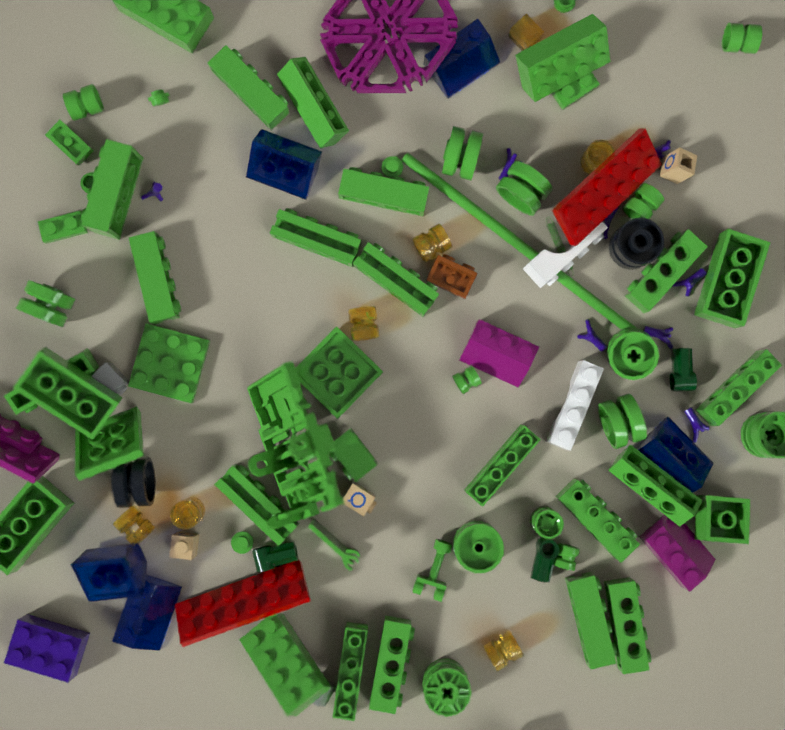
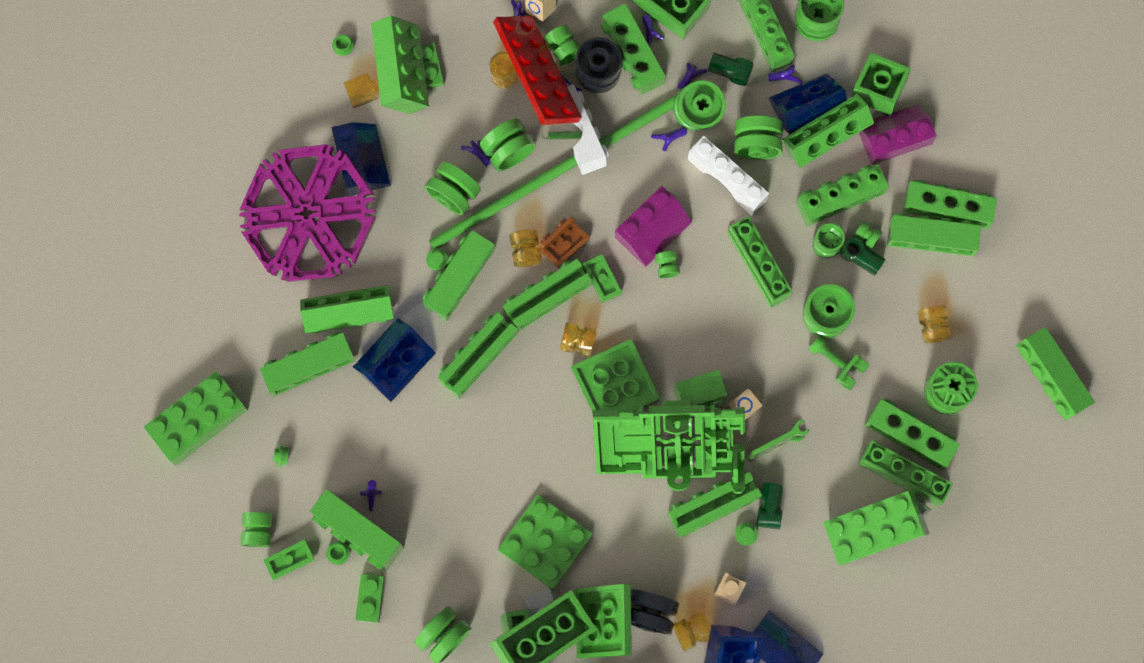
camera: 65 degrees left, 10 degrees down
(154, 277) = (456, 523): bright green brick -> none
(187, 513) = (699, 573): clear yellow wheel -> none
(241, 603) = (804, 552): red plate -> none
(431, 324) = (602, 278): none -> bright green plate

